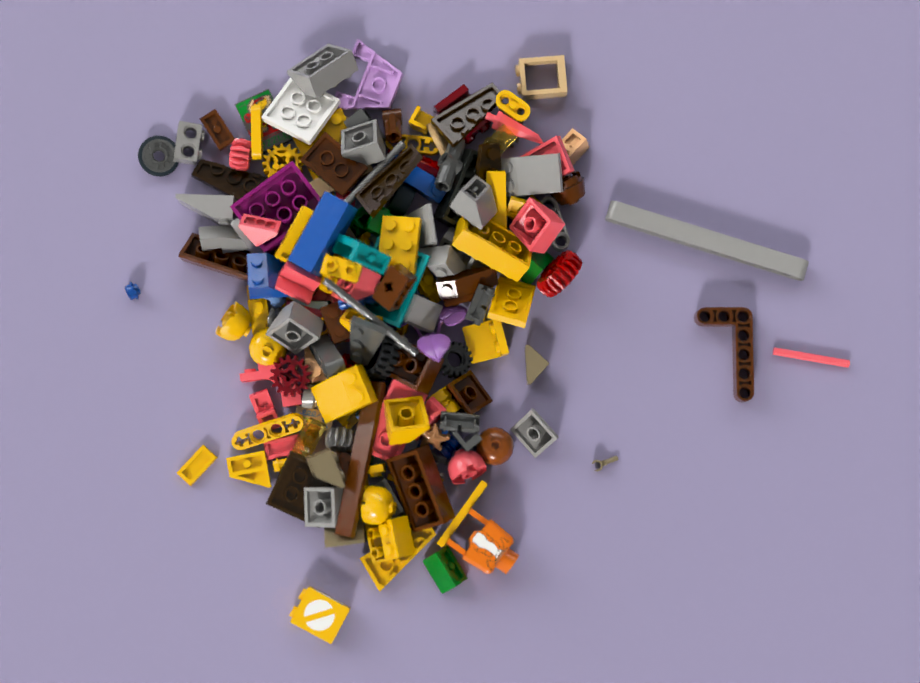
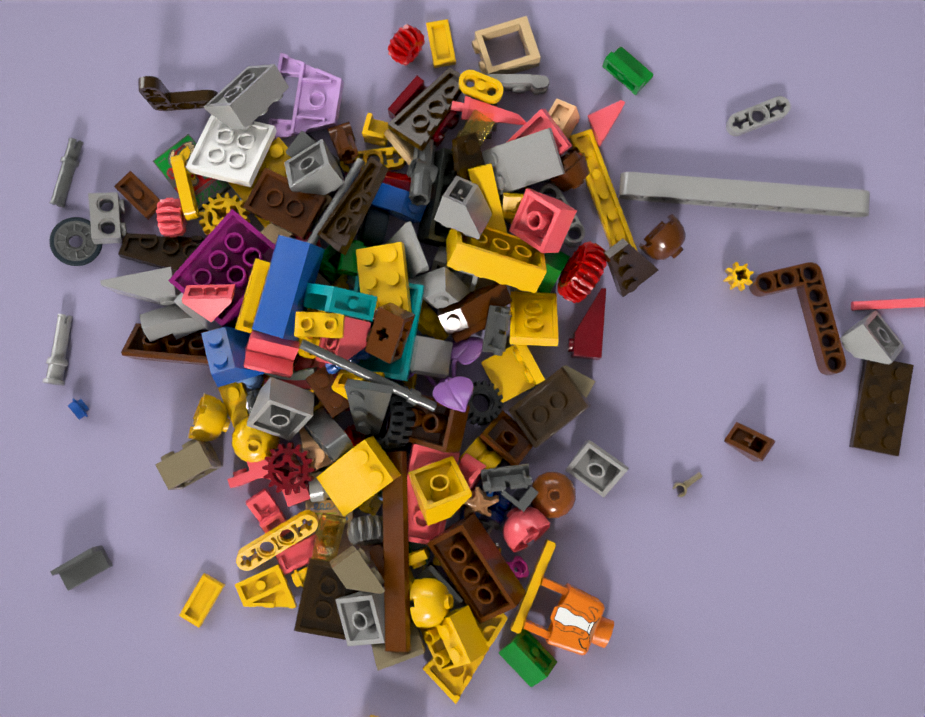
camera: 10 degrees left, 0 degrees up
(109, 417) = (83, 567): none -> dark grey panel
(123, 249) = (57, 361): none -> light grey pin
(163, 98) = (66, 172): none -> dark grey pin
(211, 355) = (188, 465): none -> dark tan brick
(252, 55) = (162, 100): none -> dark brown beam
(455, 494) = (521, 566): none -> dark pink plate
(461, 56) = (406, 44): none -> red gear
(490, 60) = (441, 43): none -> yellow tile
(507, 376) = (549, 407): none -> dark brown plate
(547, 108) = (522, 82): none -> light grey hinge
(553, 325) = (588, 337): none -> dark red slope
(593, 217) = (602, 190): none -> yellow tile
(597, 278) = (628, 267): none -> dark brown wing
(607, 154) = (603, 120): none -> coral slope
(633, 263) = (665, 240): none -> reddish brown cylinder
(637, 116) = (627, 70): none -> green panel
(661, 440) = (749, 442): none -> reddish brown slope
(685, 311) = (732, 276): none -> yellow gear
(720, 176) = (764, 108): none -> light grey beam
(776, 436) = (881, 407): none -> dark brown plate
(782, 381) = (872, 340): none -> light grey slope

